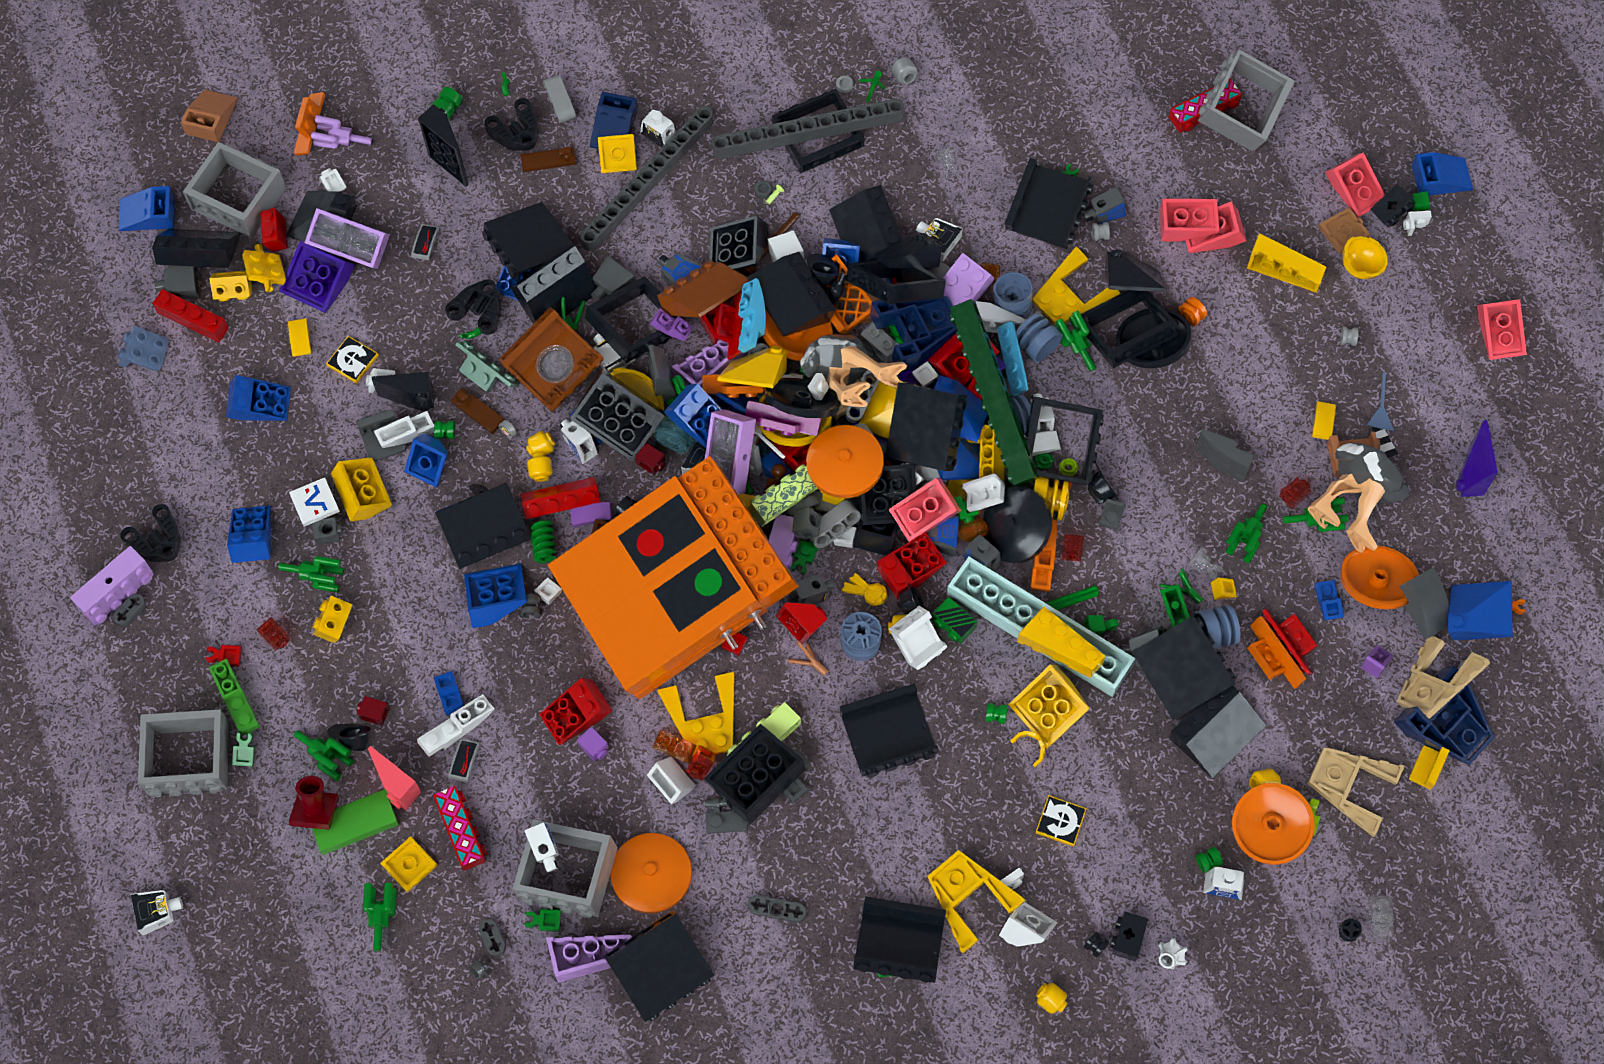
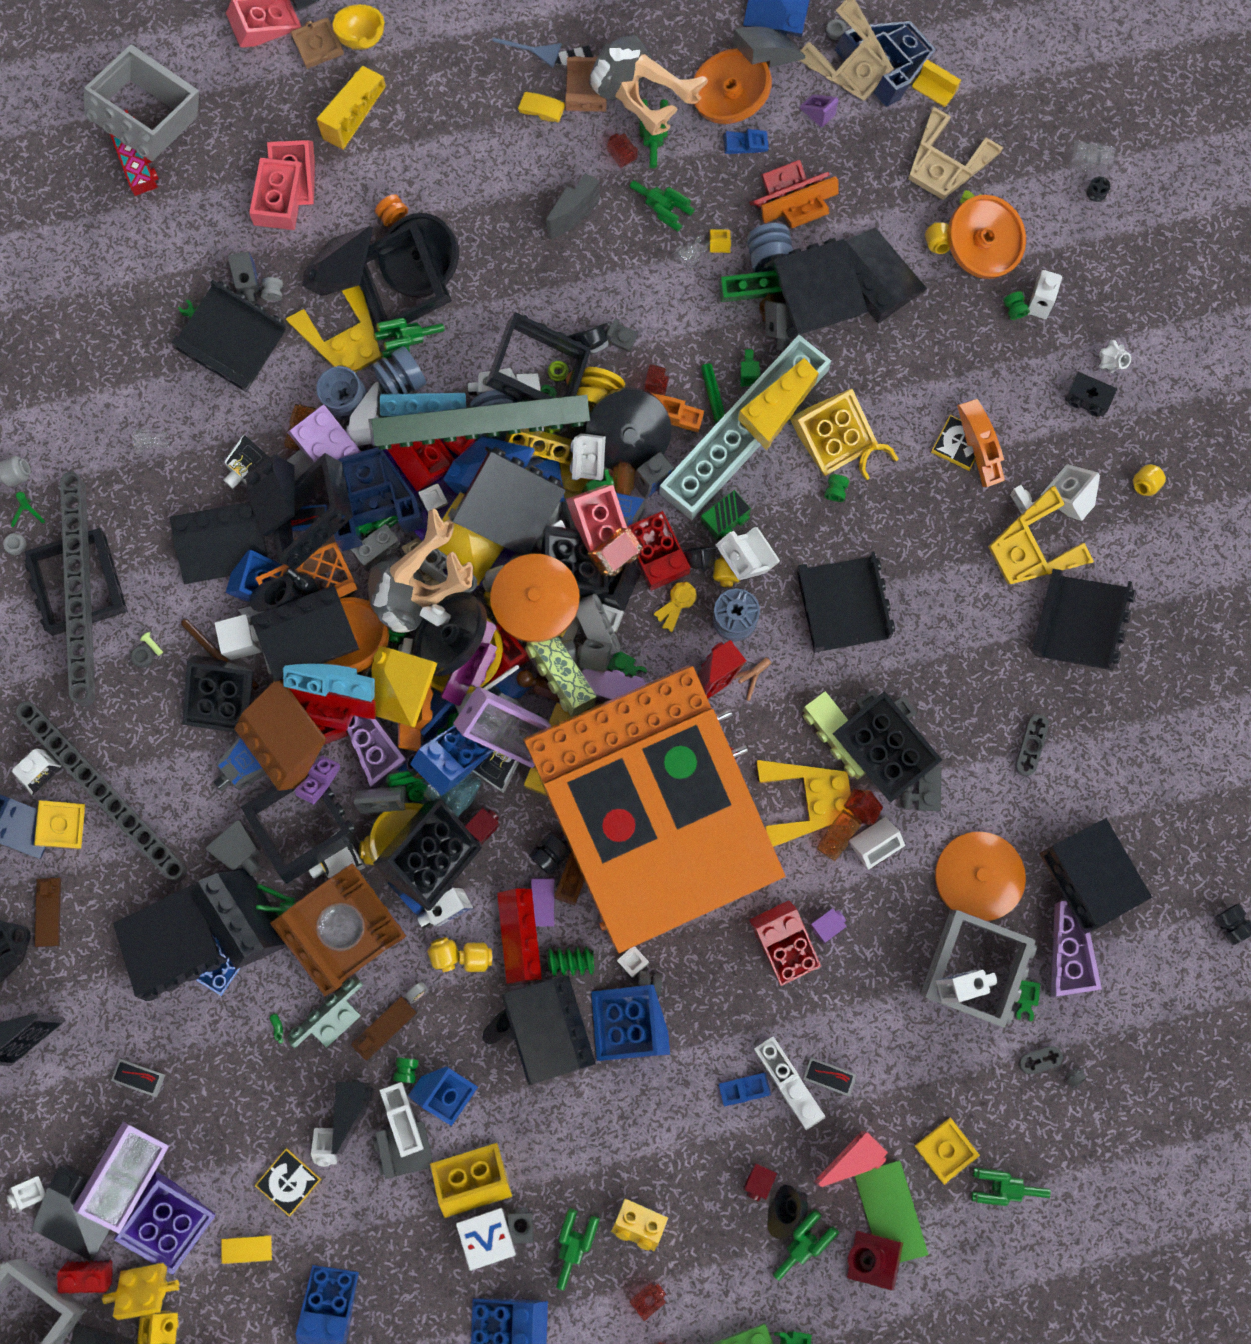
camera: 85 degrees left, 10 degrees up
(459, 827) = (913, 1087): brick -> none
(486, 303) = (232, 1032): black connector -> none
(811, 590) = (673, 655): dark grey torso -> none
(897, 522) = (615, 552): none -> brick
(1060, 834) = (983, 439): none -> orange slope
(1096, 944) = (1096, 428): black wheel -> none
(1190, 591) = (718, 274): green plant -> none
(1349, 336) = (446, 62): light grey wheel -> none

